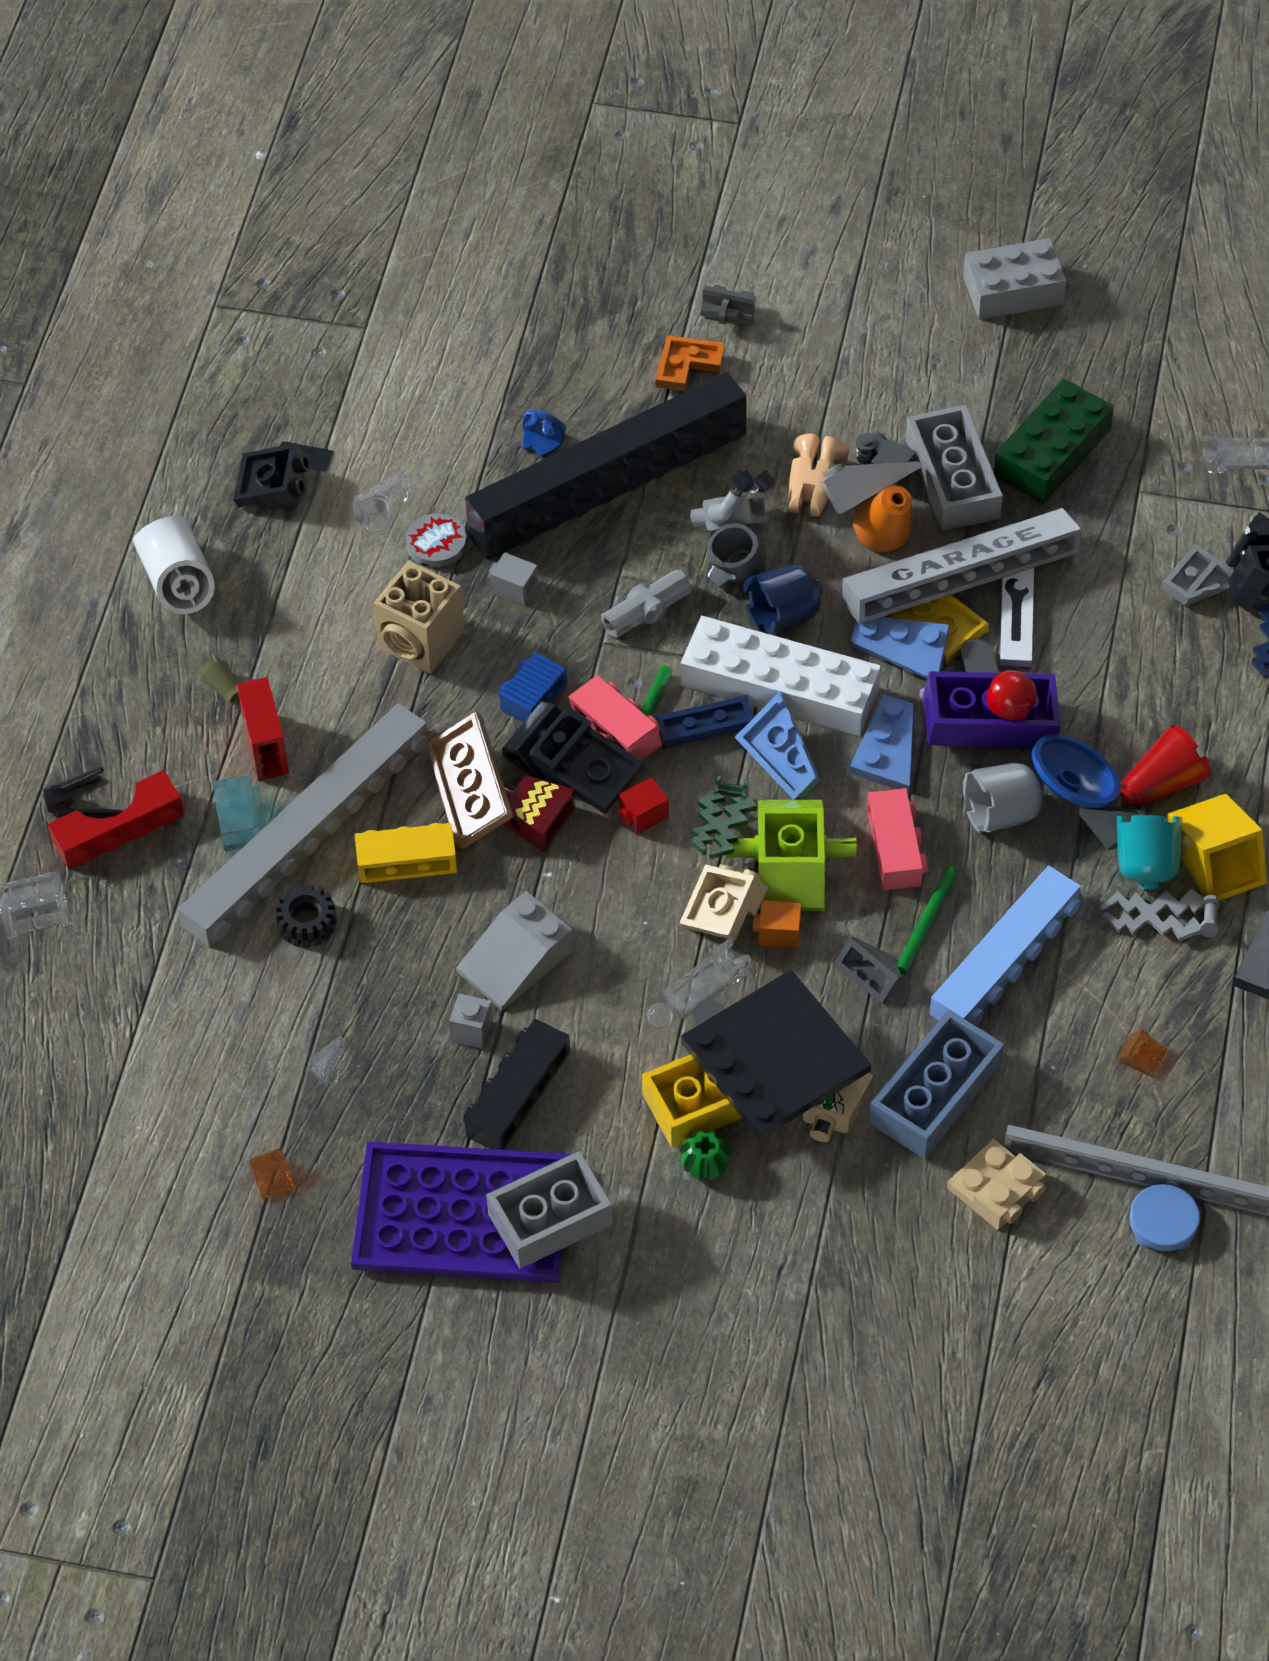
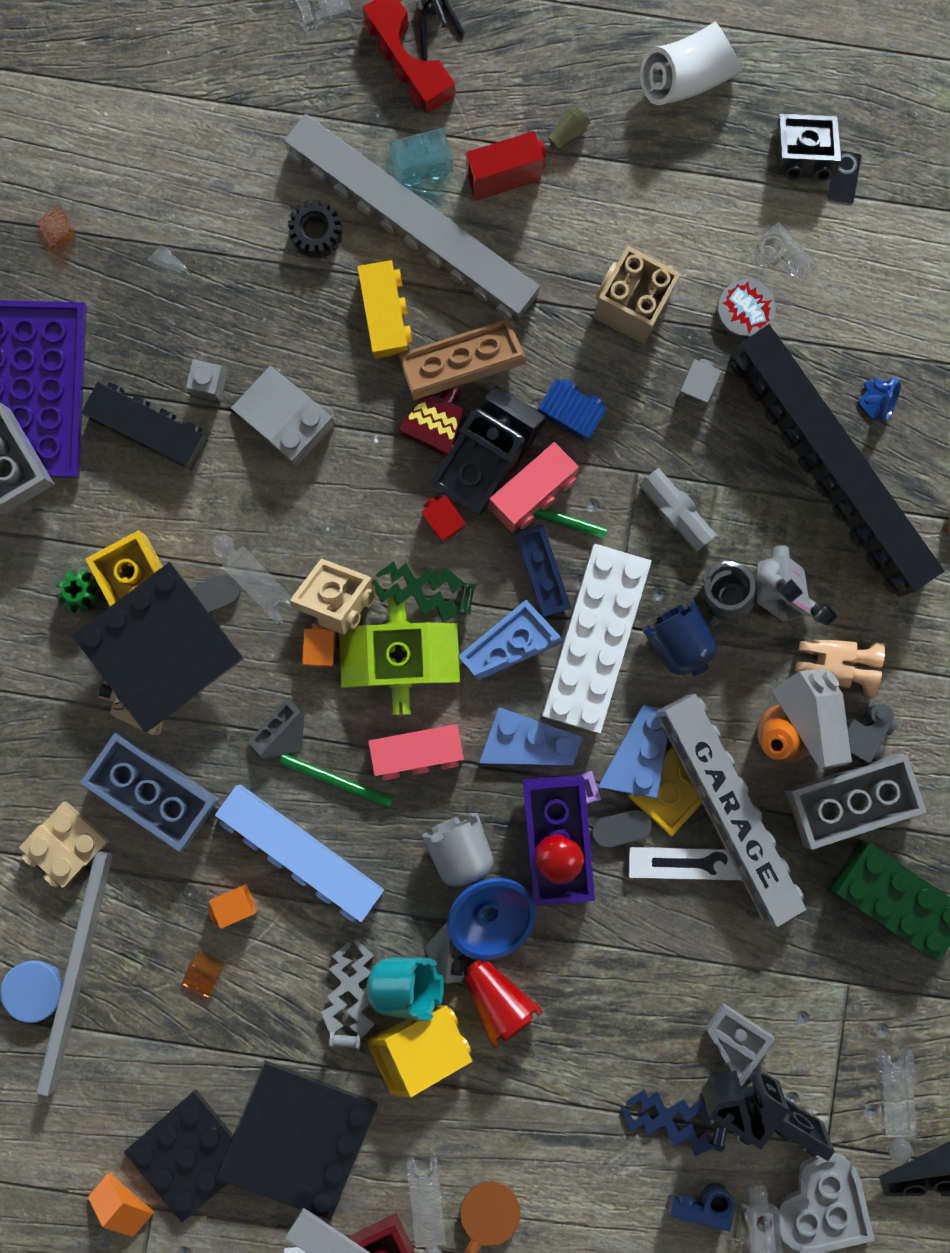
camera: 85 degrees right, 30 degrees up
(1065, 1014) = (232, 906): none -> orange brick

